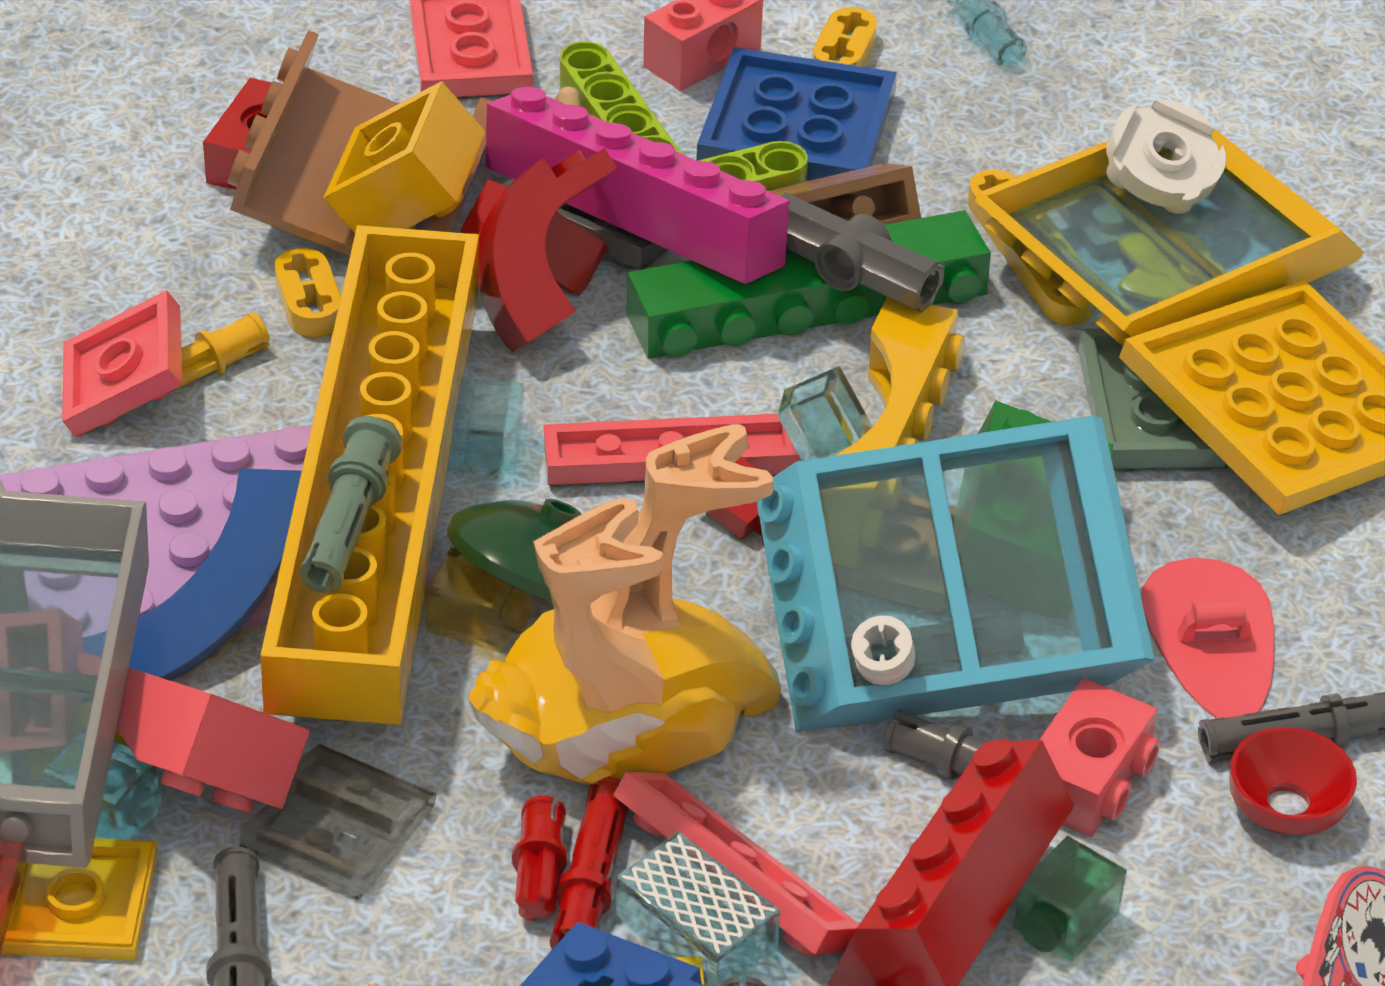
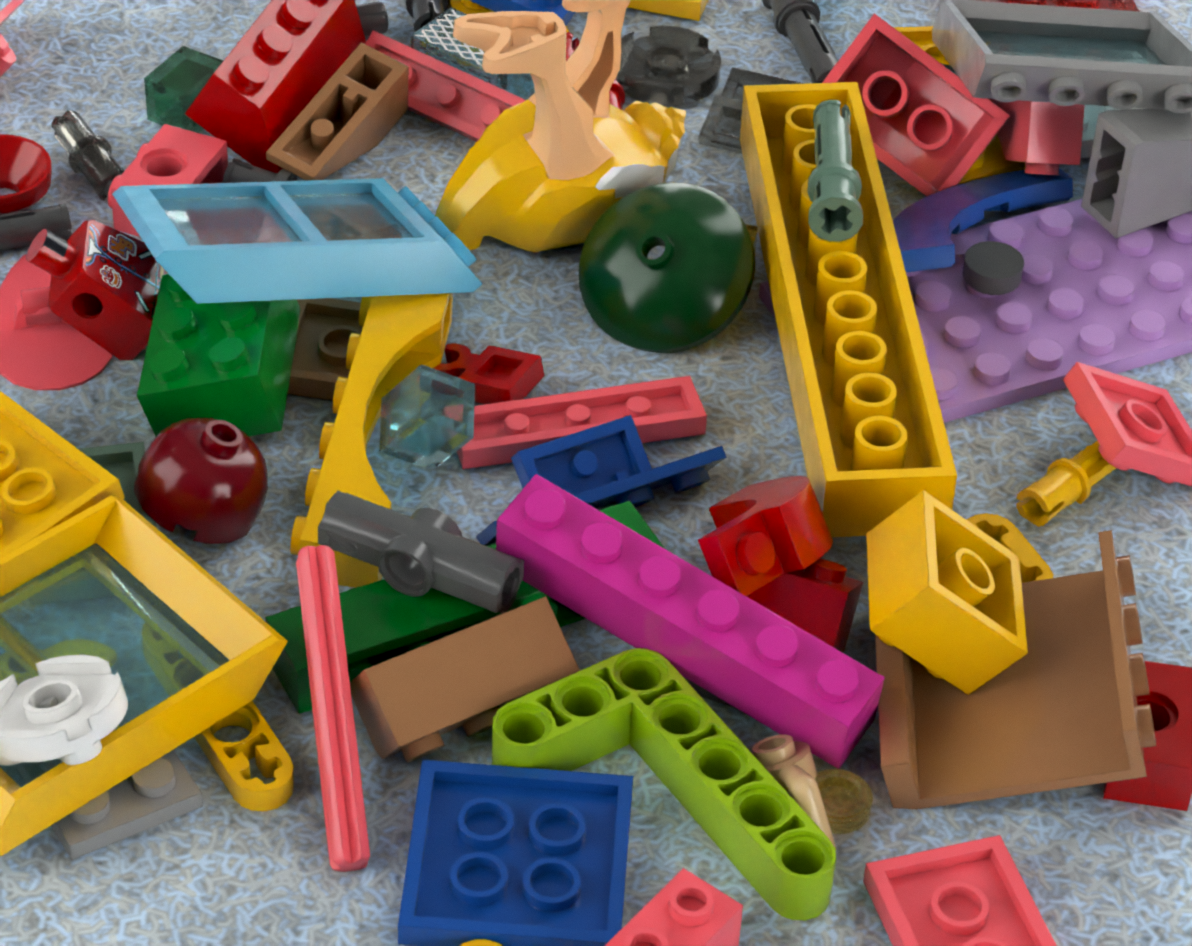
camera: 170 degrees right, 0 degrees up
(181, 532) = (993, 268): none -> dark grey tile
(443, 936) = (687, 79): none -> clear smoke plate
(488, 427) = (760, 413): clear light blue brick -> none
(667, 373) = (607, 467): none -> blue bracket
(872, 810) = (345, 116): none -> medium nougat slope
(883, 629) = (348, 175): white bush -> none
(938, 185) = (332, 709): none -> coral axle
(1048, 379) = (203, 479): none -> dark red cylinder
(1179, 584) = (101, 284): none -> red torso
(1187, 827) = (86, 151): none -> clear smoke axle

